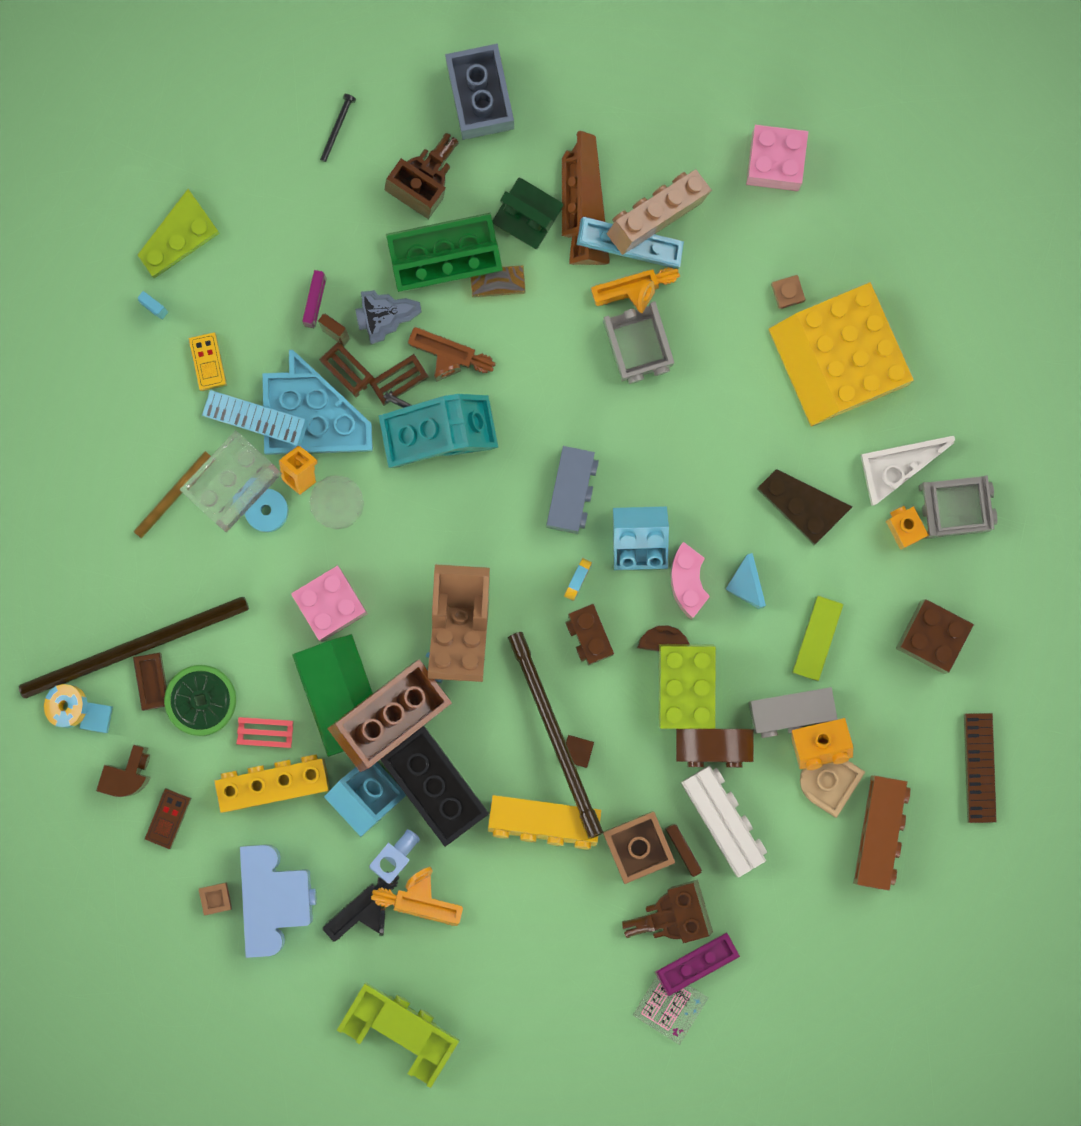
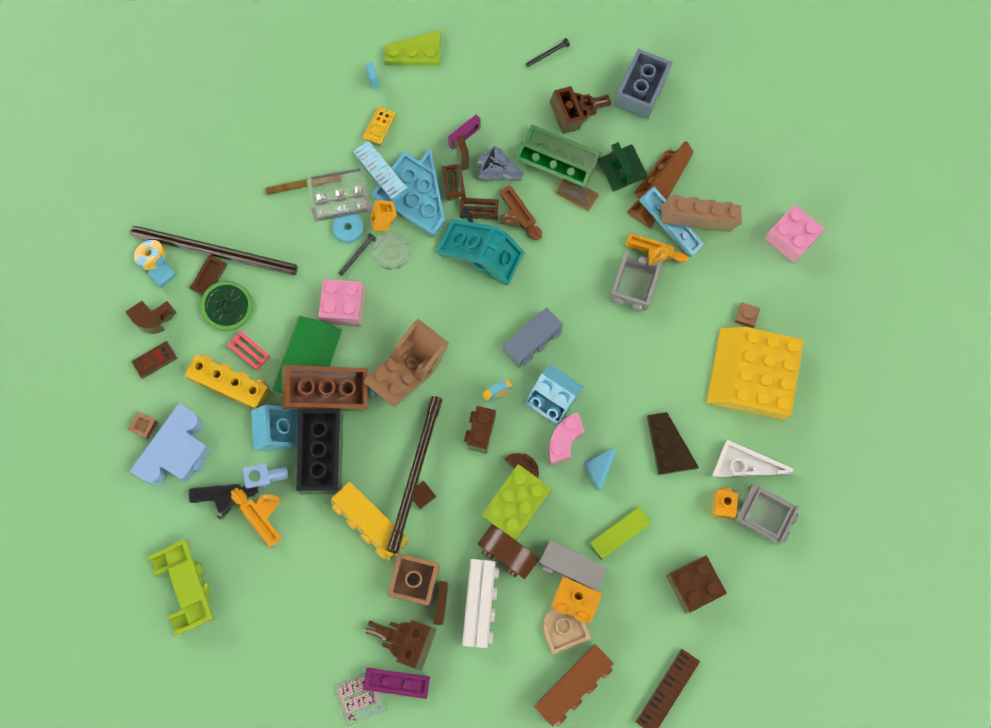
camera: 35 degrees right, 10 degrees down
(300, 533) = (356, 255): none -> black piece

